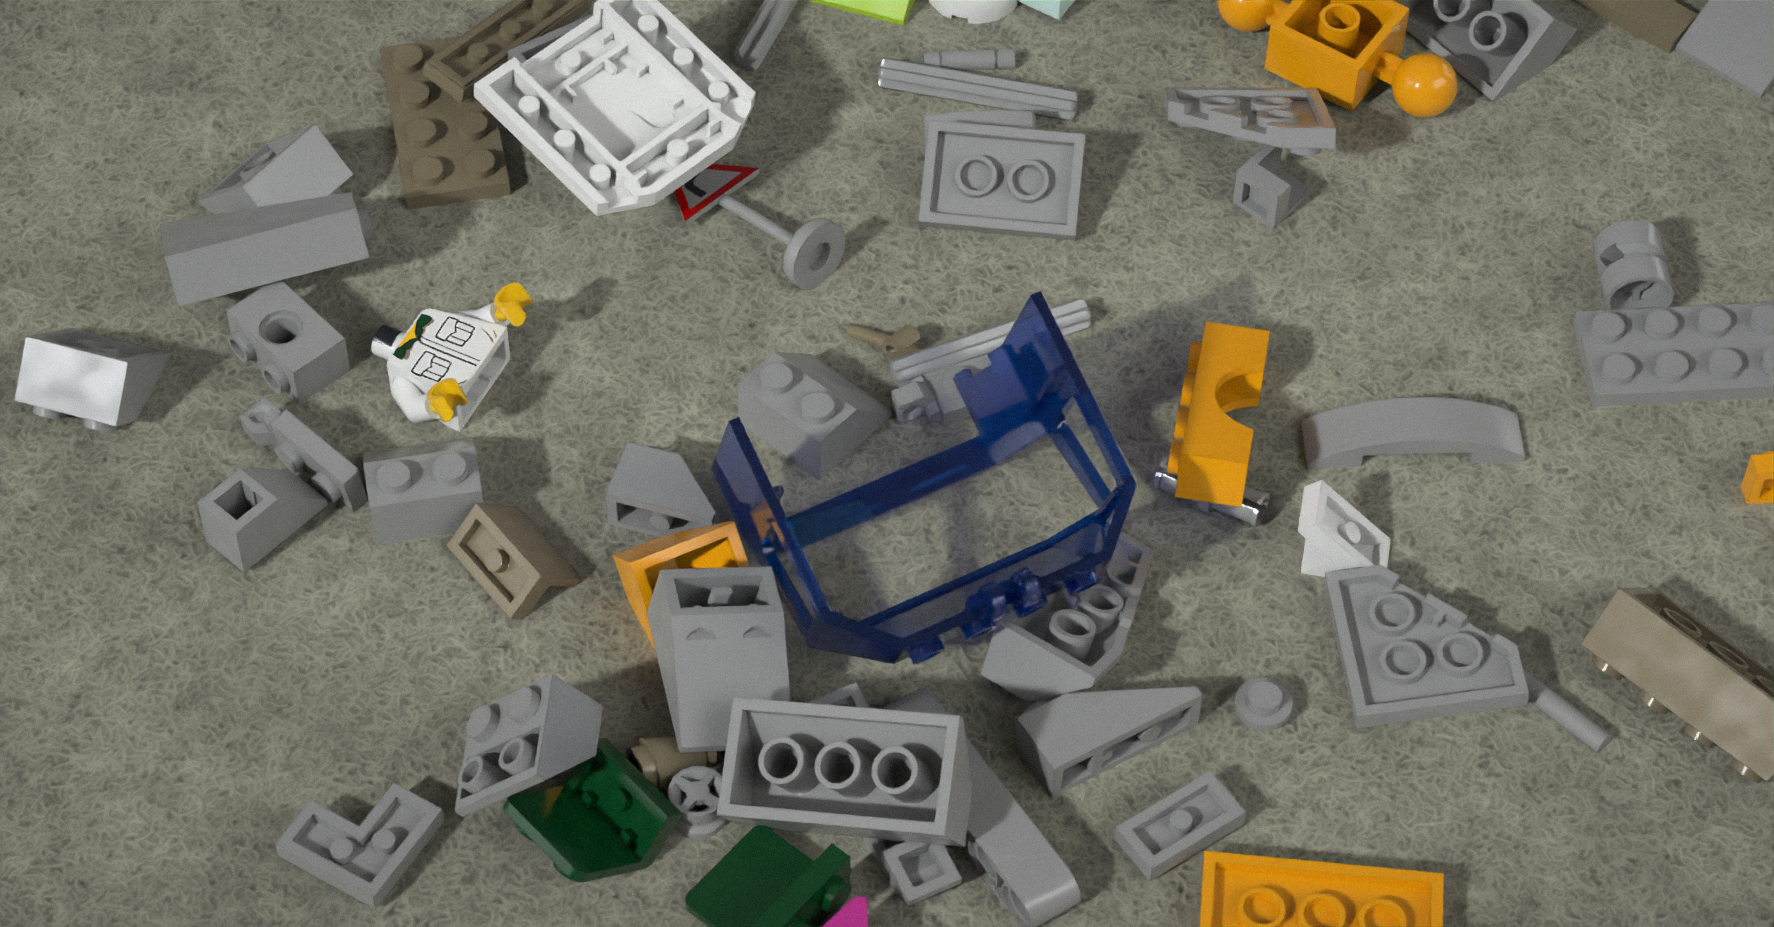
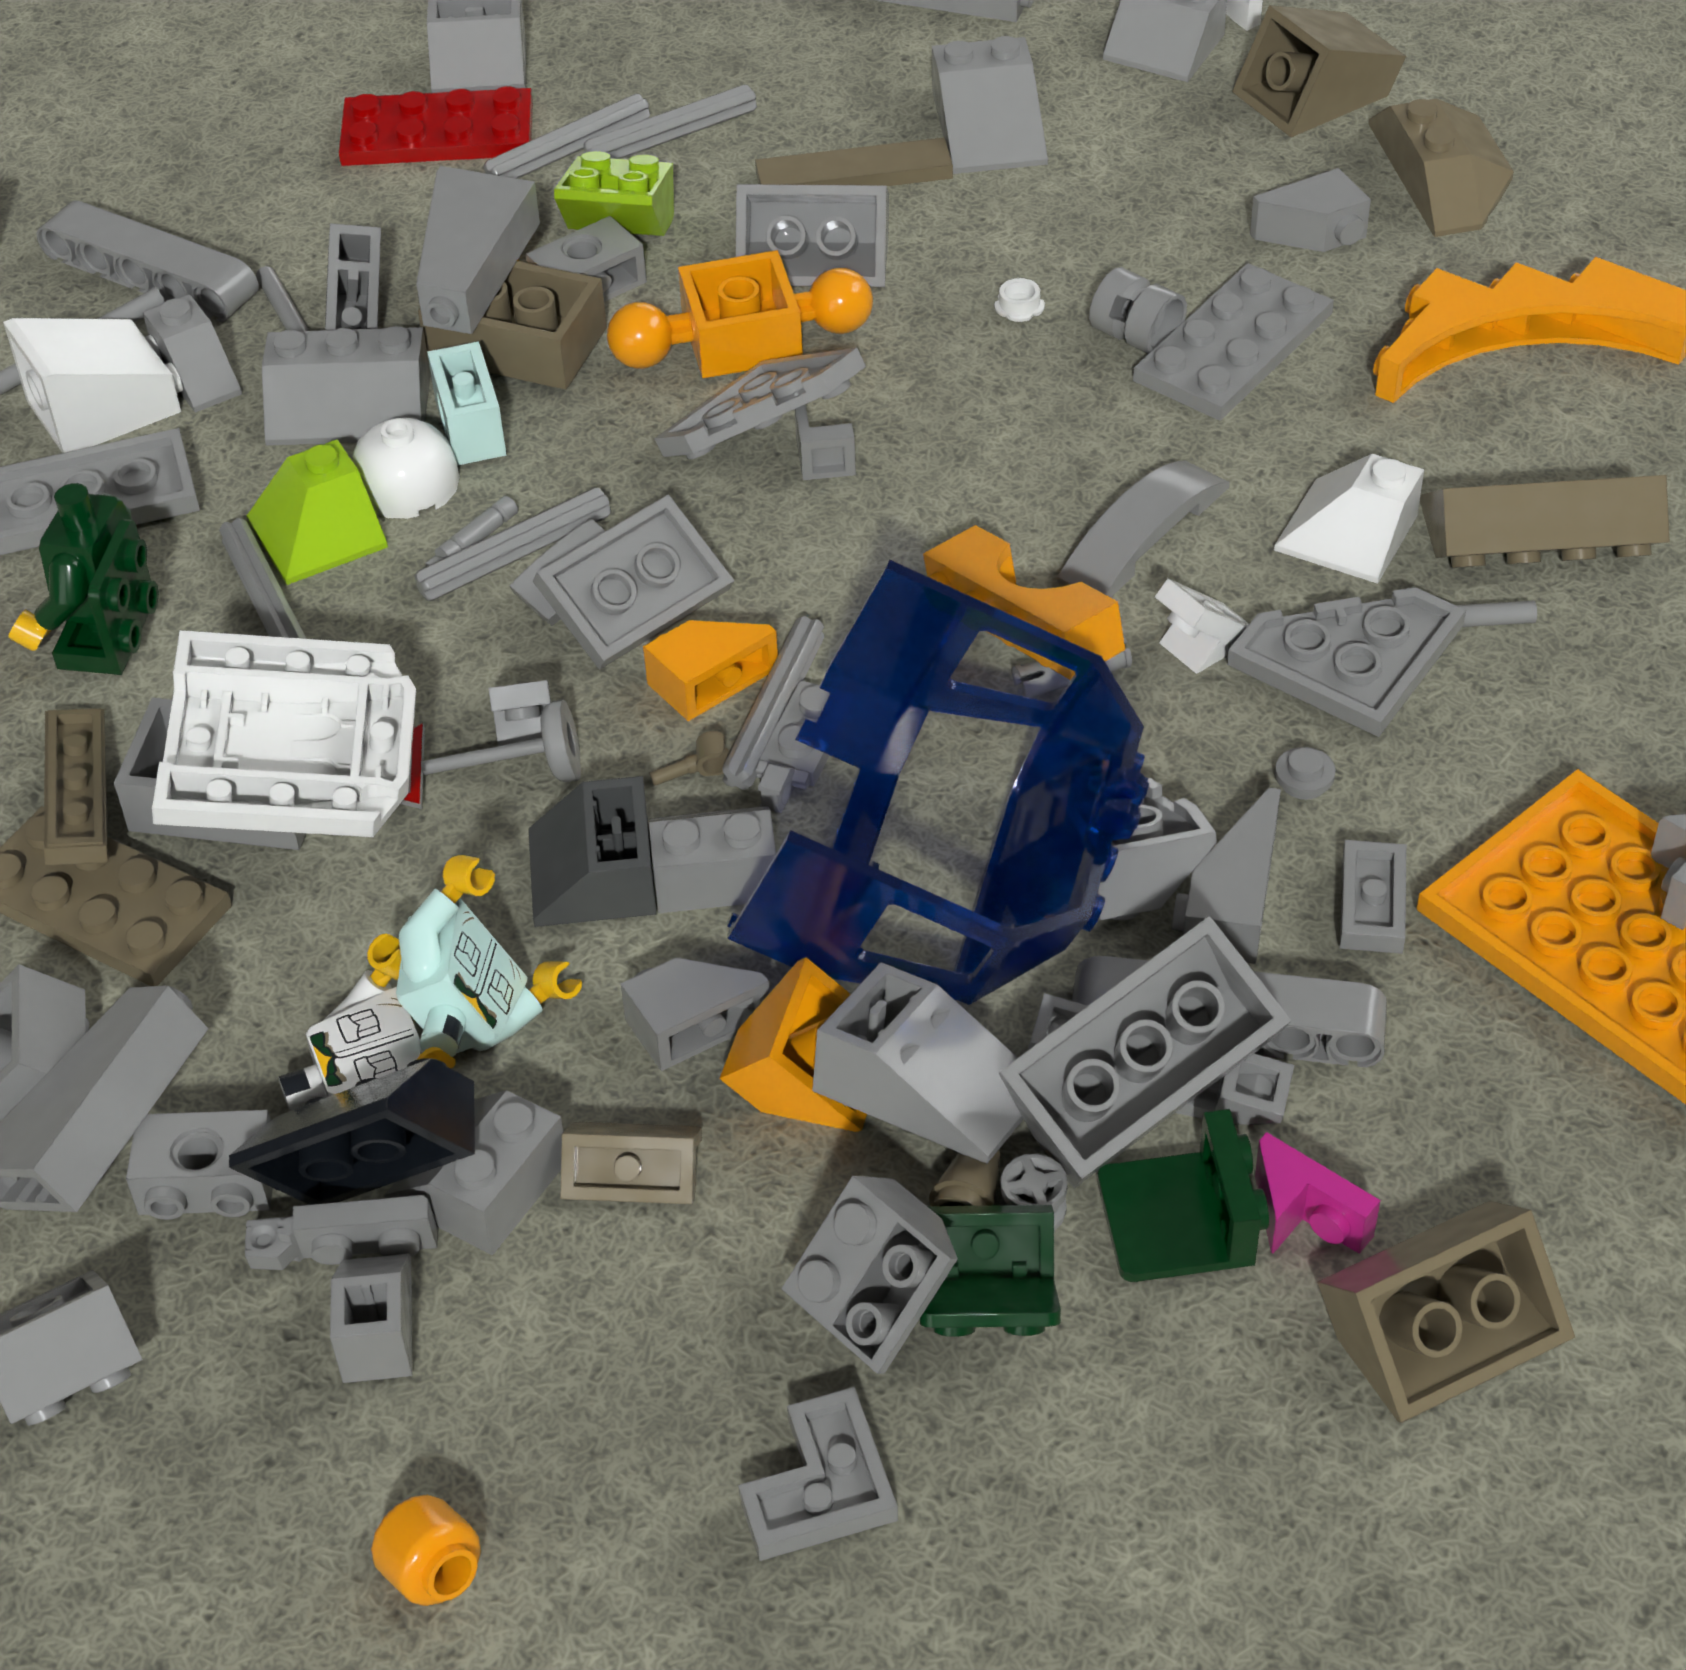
camera: 45 degrees left, 5 degrees down
(119, 673) = (426, 1550): none -> light orange head
(361, 398) = (365, 1135): none -> black slope
(541, 356) = (460, 977): none -> light aqua torso
(730, 344) = (593, 855): none -> dark grey slope
(824, 201) = (519, 710): none -> light grey slope
(975, 278) = (708, 662): none -> light orange slope
(1566, 563) = (1355, 517): none -> white slope
(1569, 181) = (1019, 300): none -> white plate

